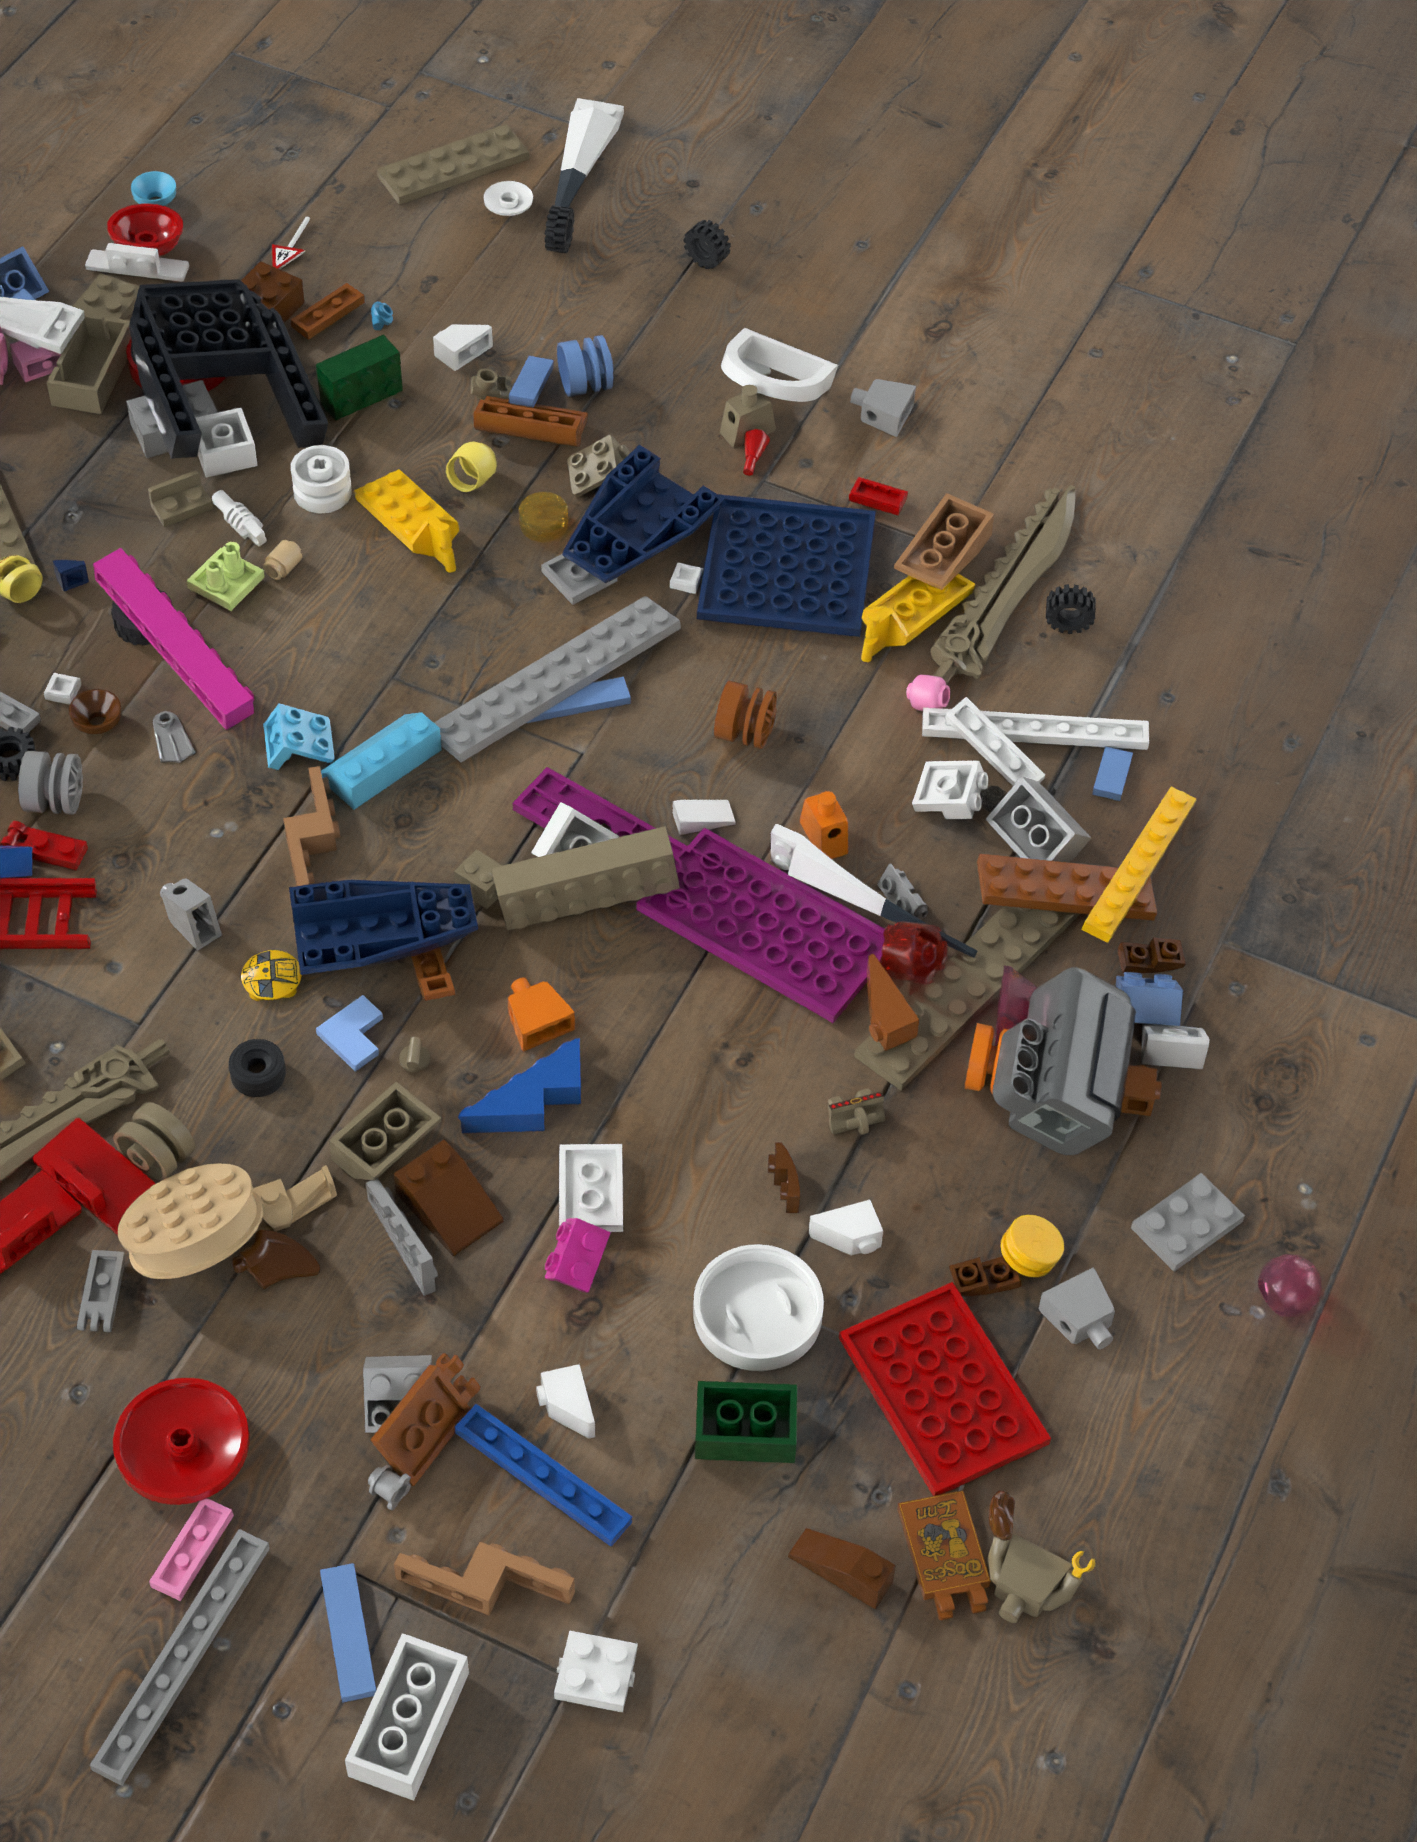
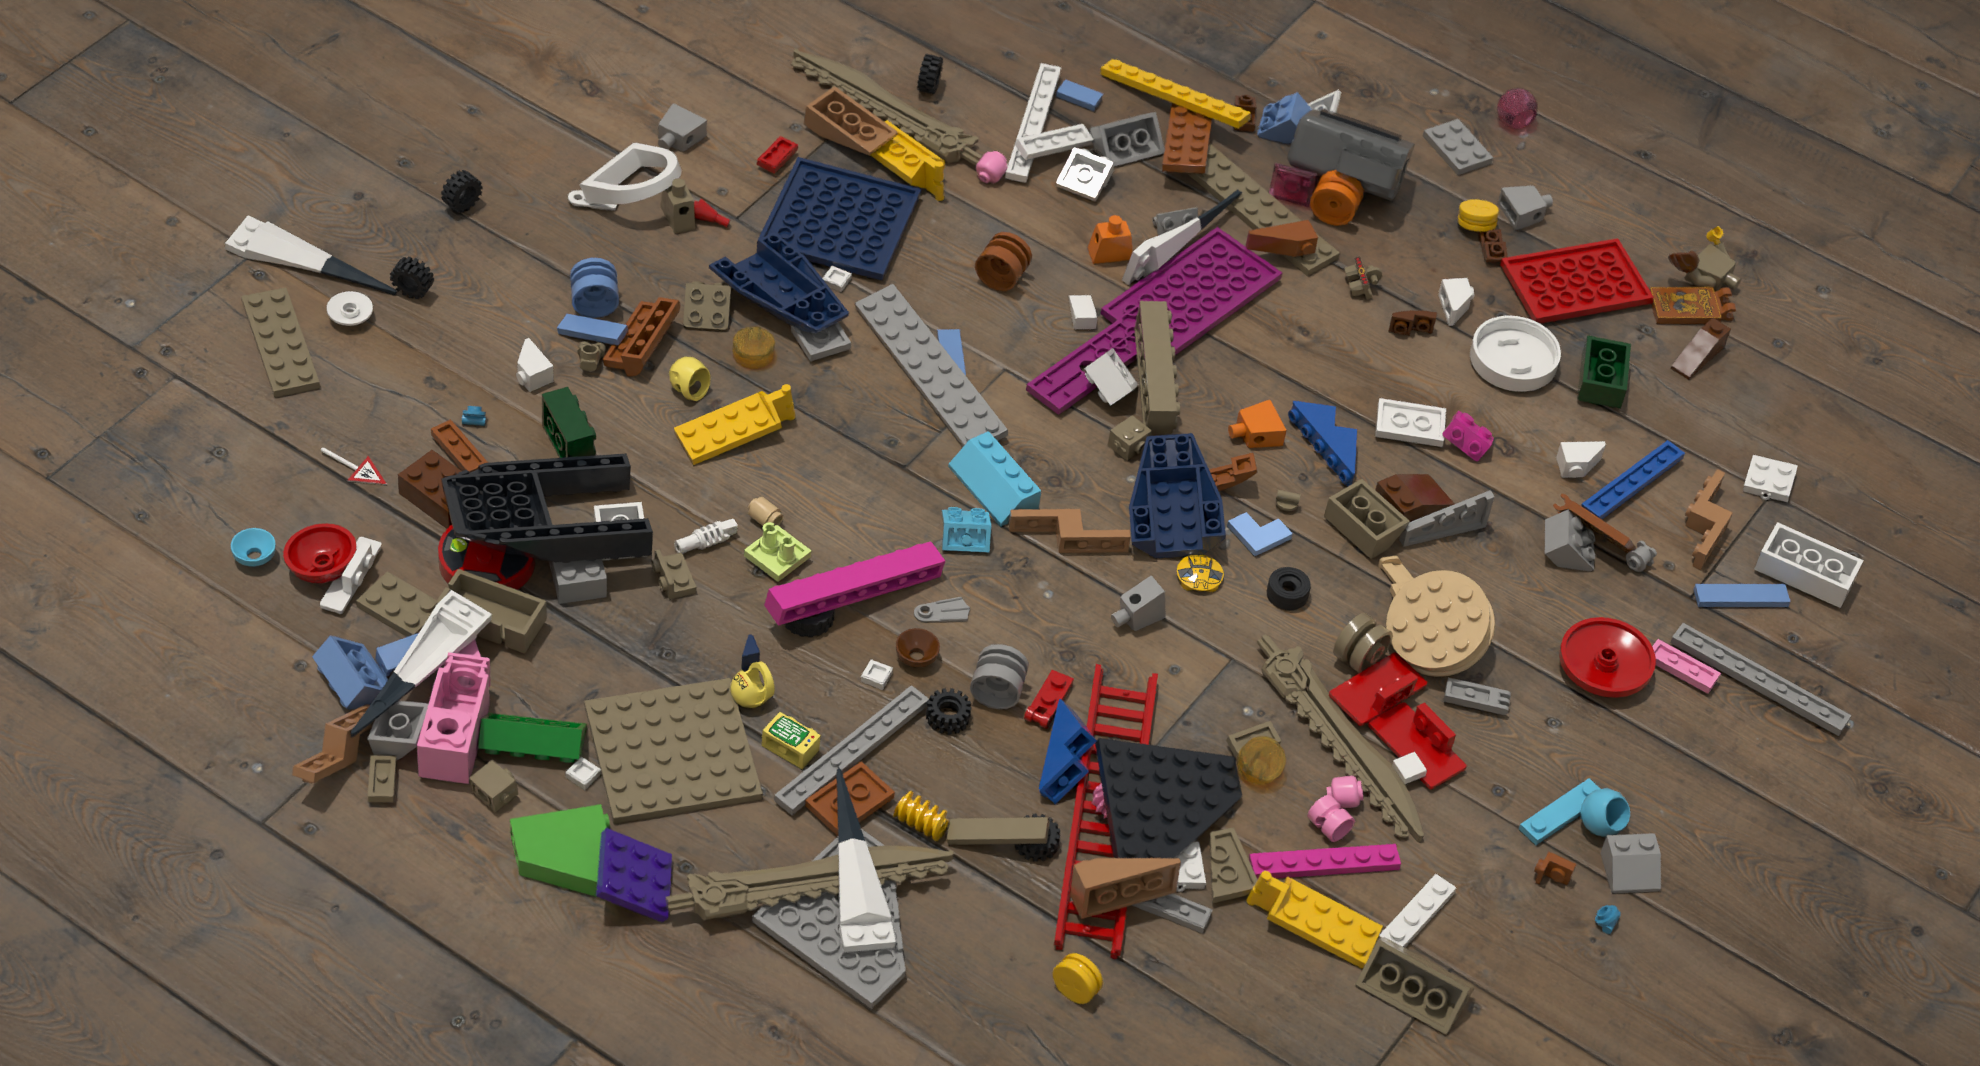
camera: 85 degrees left, 5 degrees down
(321, 479) = (680, 474): white wheel -> none
(913, 952) = (1242, 214): clear red brick -> none

